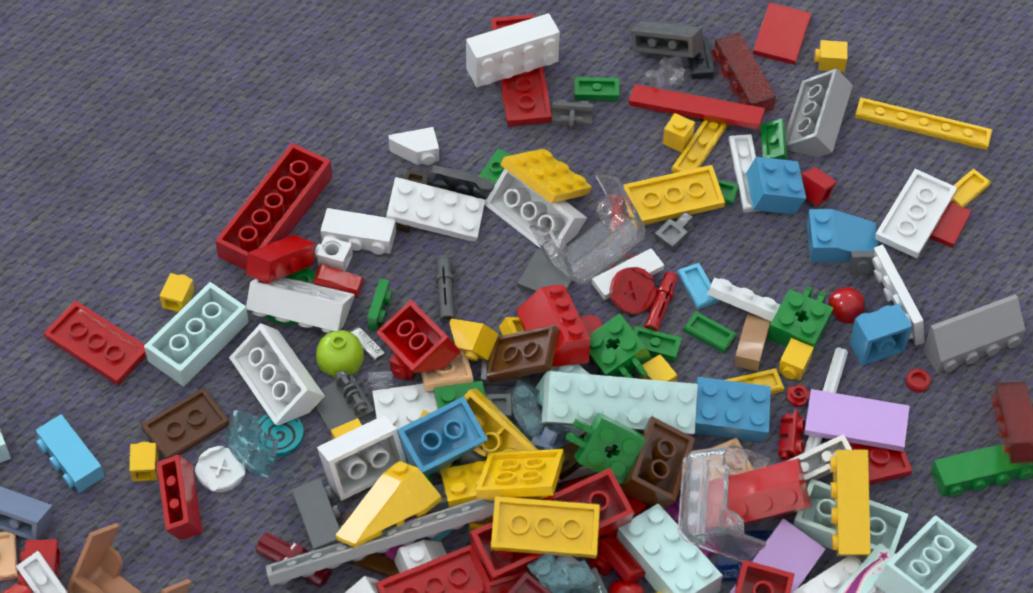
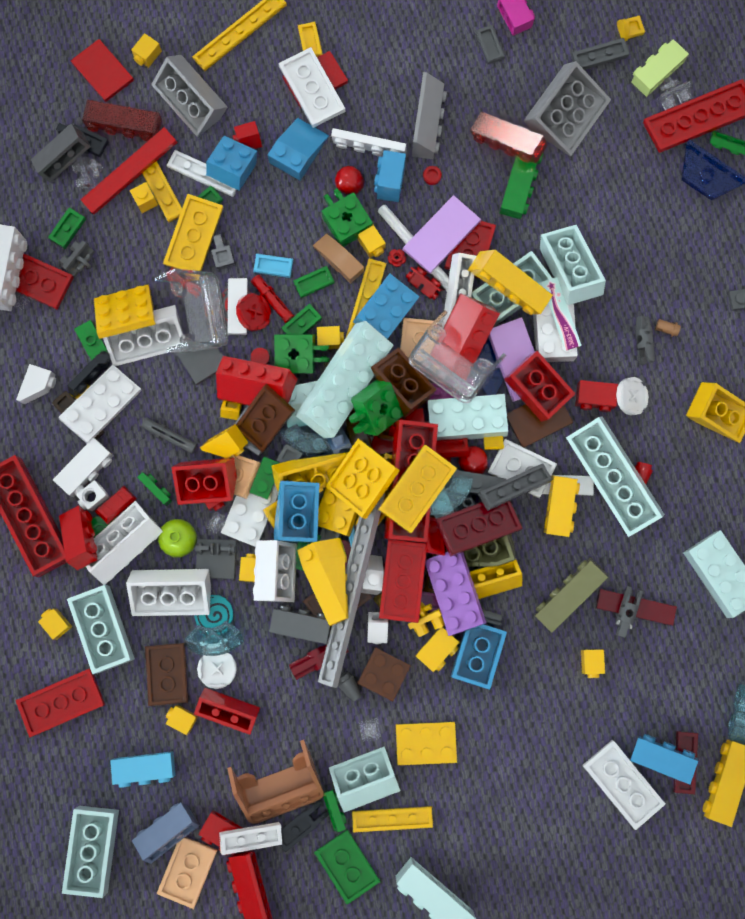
camera: 60 degrees left, 25 degrees up
(368, 344) = (180, 513): white sticker -> none
(743, 299) = (306, 244): white plate -> none
(774, 139) = (192, 138): green plate -> none
(861, 263) = (326, 148): dark grey plate -> none

